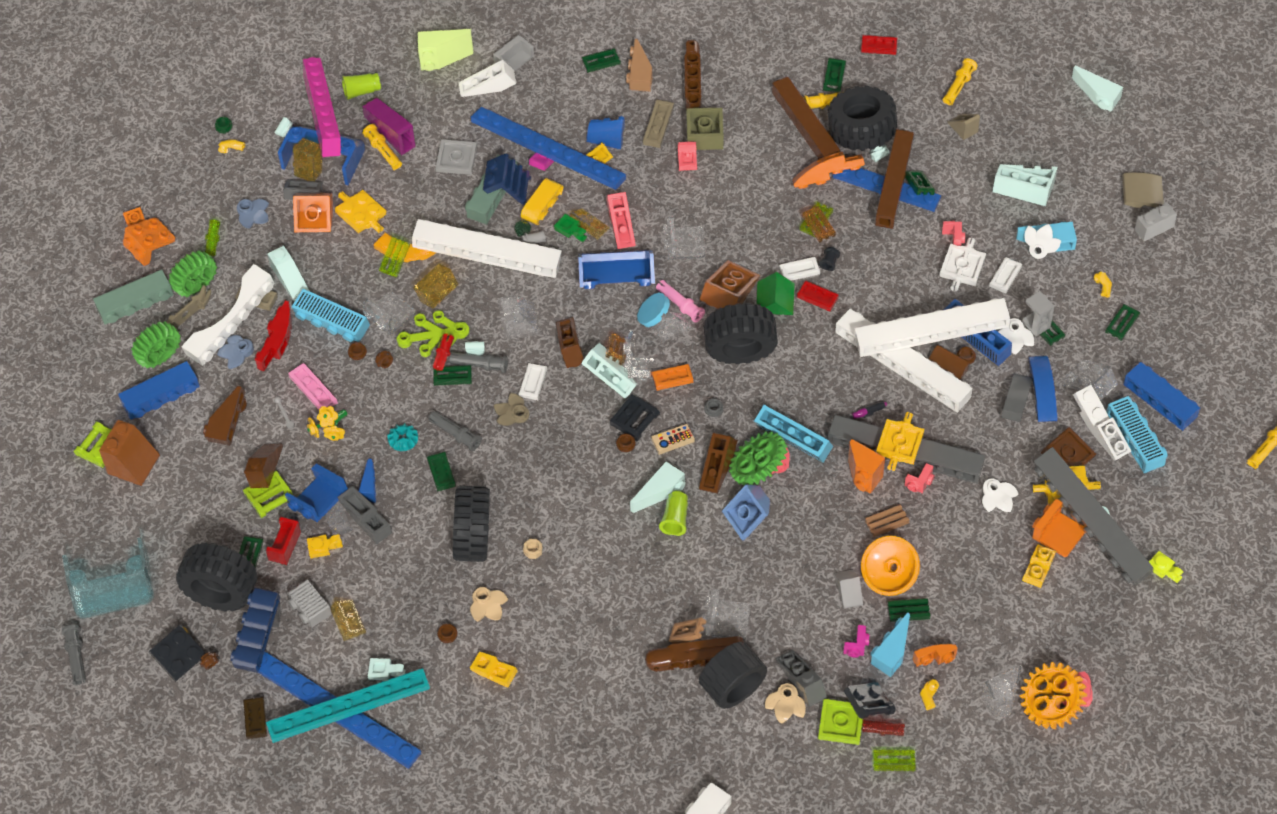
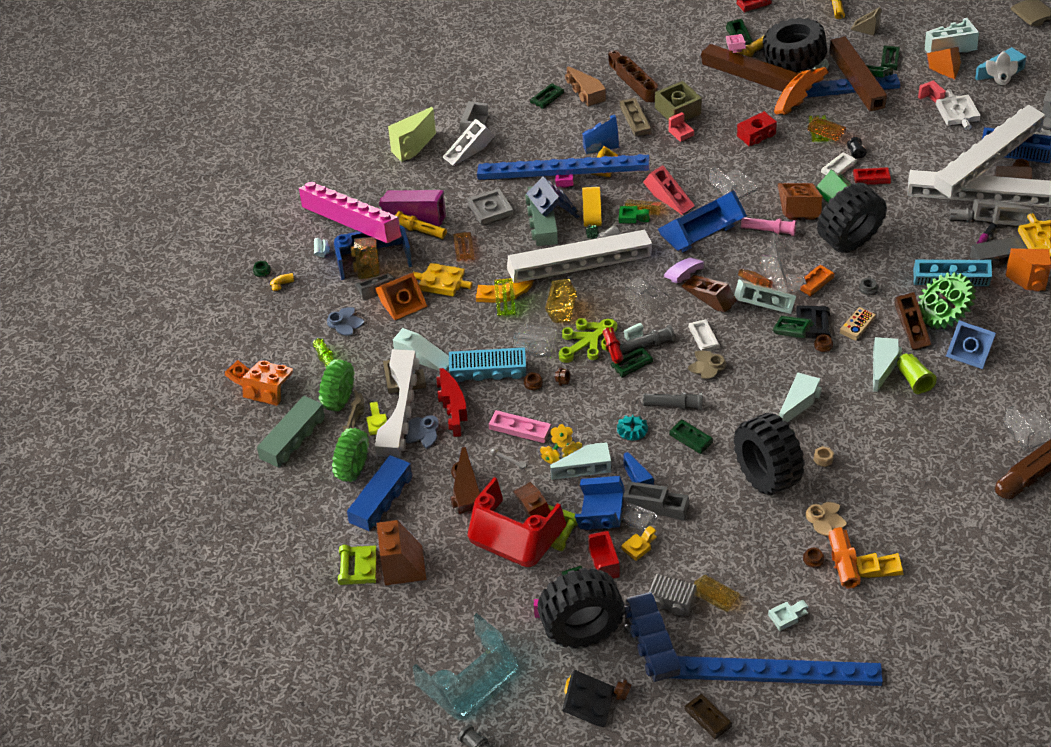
camera: 30 degrees left, 10 degrees down
(207, 321) = (376, 420): none -> neon yellow plate
(232, 495) = (508, 538): none -> red windscreen
(339, 449) = (586, 461): none -> light aqua slope
(347, 705) = (787, 658): teal plate -> none
(360, 85) = (363, 188): lime plant -> none
(404, 199) = (465, 256): none -> clear orange tile
(469, 646) = (844, 558): none -> orange piece
(558, 483) = (800, 396): none -> light aqua slope
(562, 307) = (682, 269): none -> lavender slope
(613, 420) = (791, 329): none -> dark green tile
(653, 309) = (757, 238): medium azure tile -> none
(687, 634) = (1014, 454): medium nougat tile -> none
(755, 192) = (756, 128): none -> red brick
(810, 87) = (735, 43): none -> bright pink plate
(862, 377) = (962, 214): none -> light grey pin
(896, 395) = (1000, 212): none -> light grey slope
(945, 183) = (891, 48): none -> dark green tile
(1001, 205) = (945, 61): none -> orange slope
(1005, 275) = (993, 104): white tile -> none

